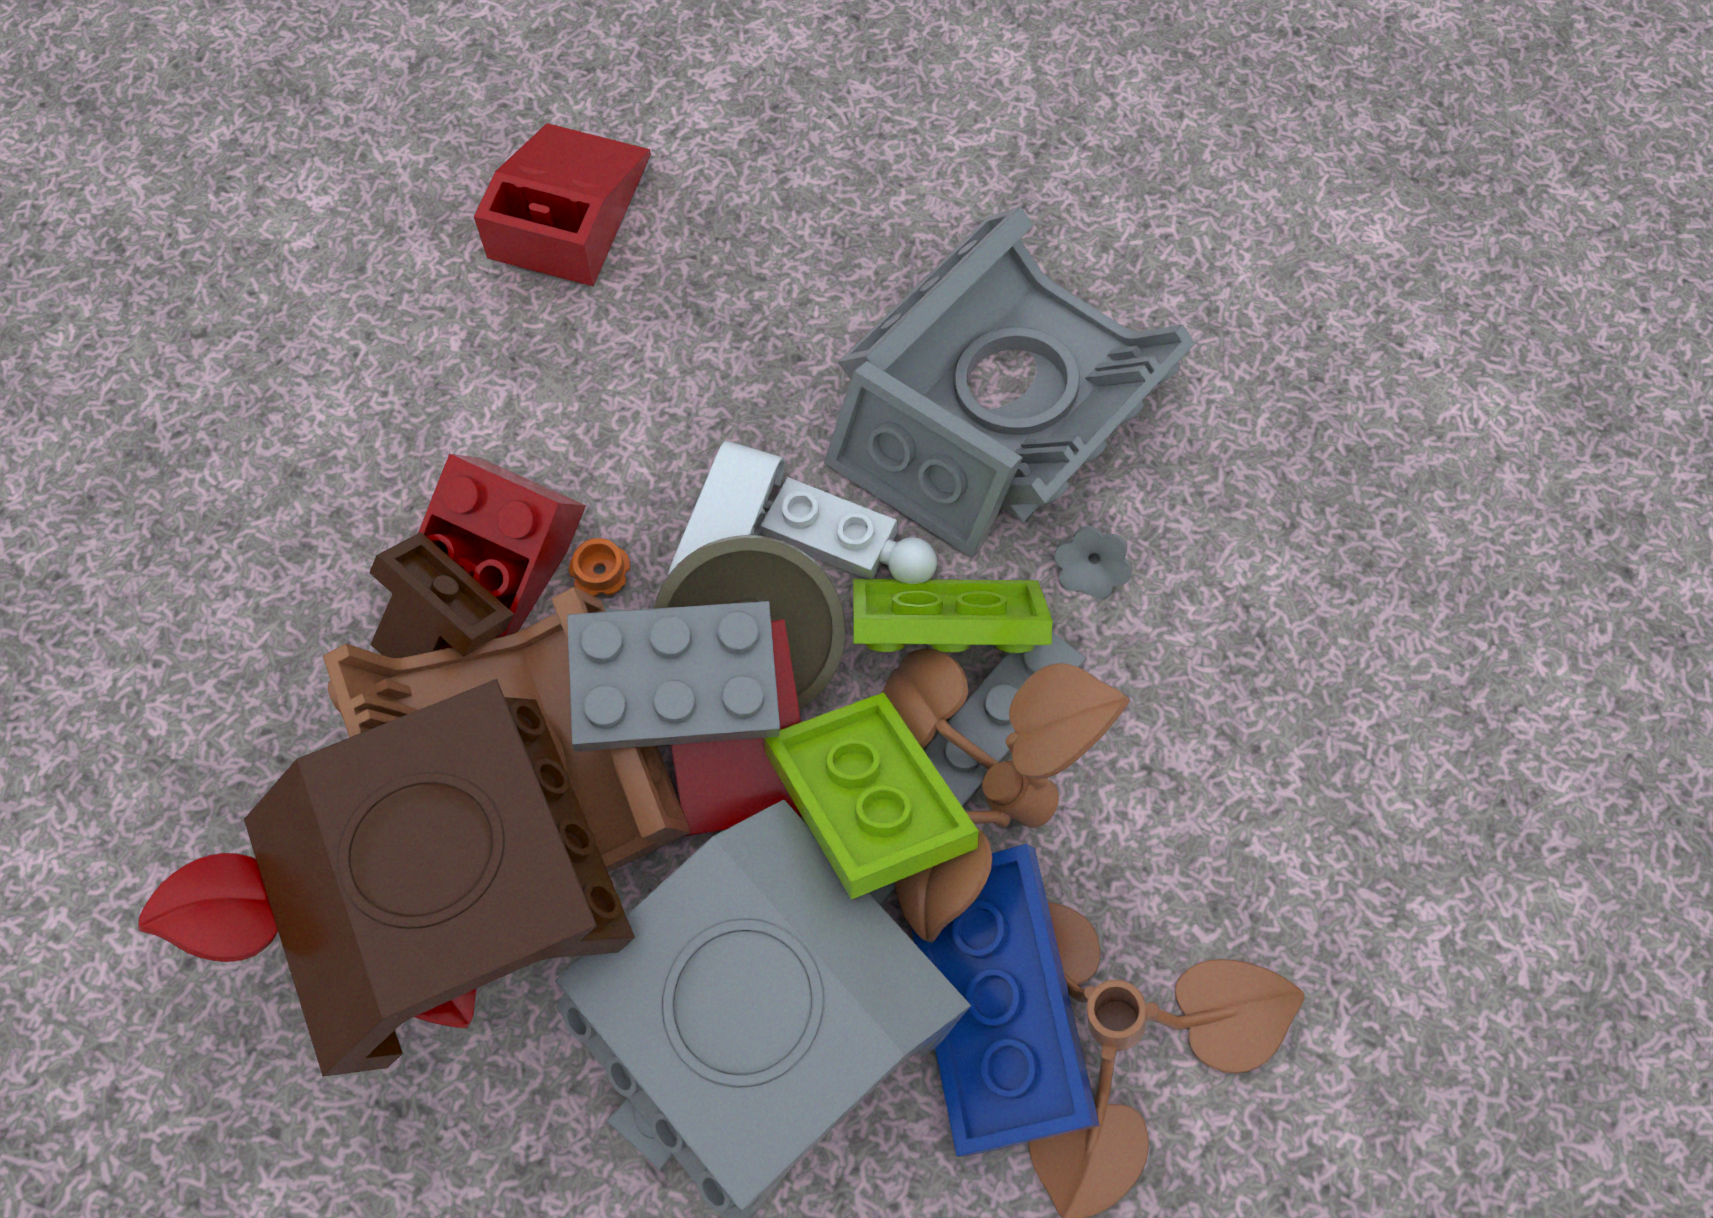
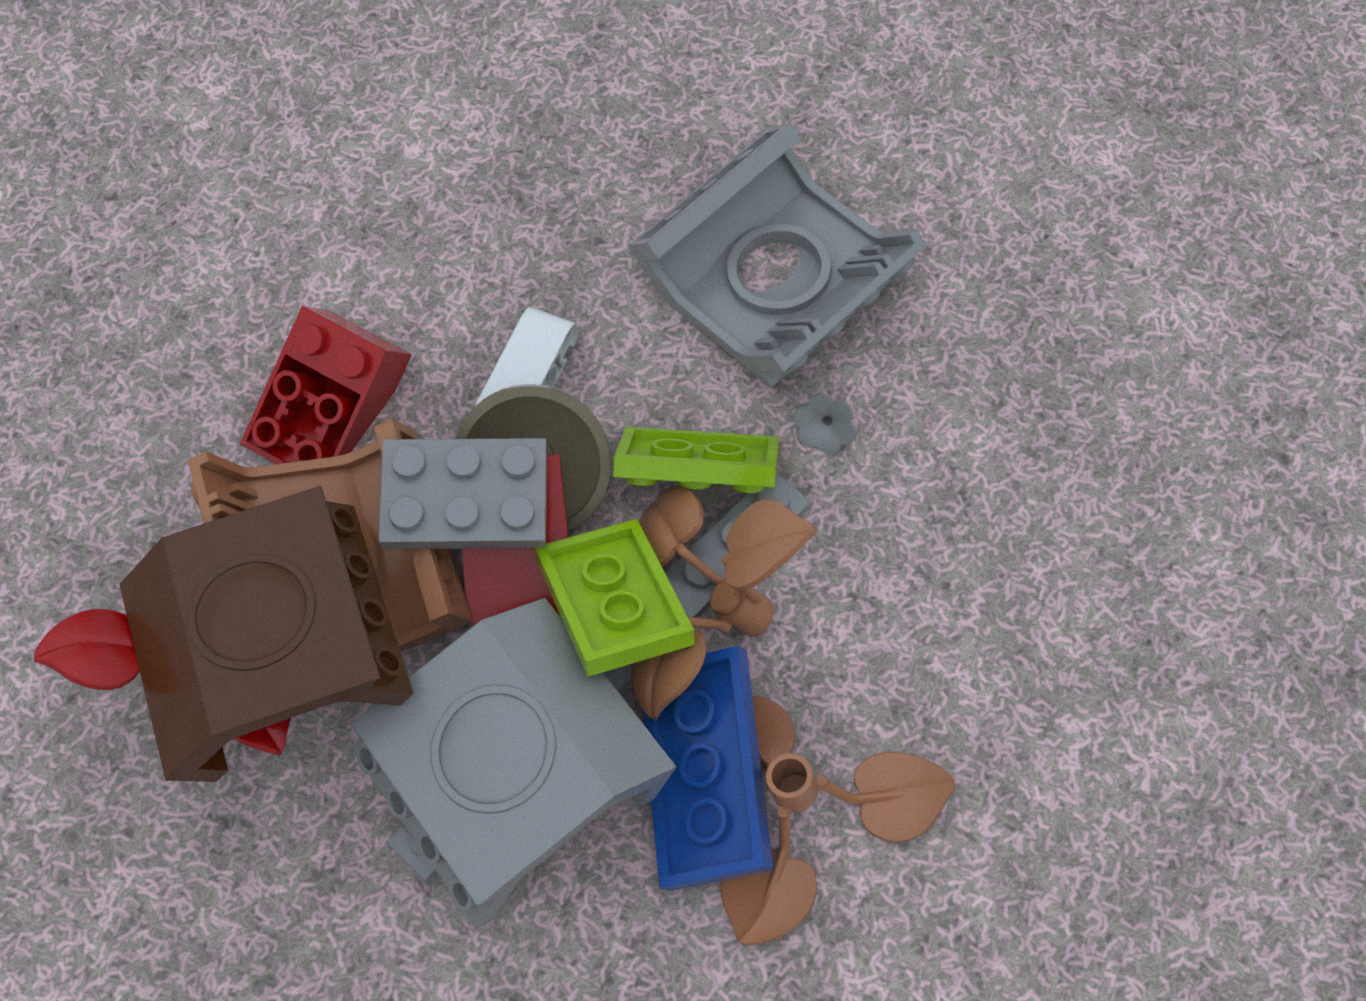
camera: 10 degrees right, 0 degrees up
(432, 602) = (280, 425): reddish brown piece -> none
(560, 202) = (412, 100): red slope -> none
(599, 553) = (413, 395): orange plate -> none
(846, 534) = (623, 390): white plate -> none
(921, 459) = (687, 330): light grey plate -> none

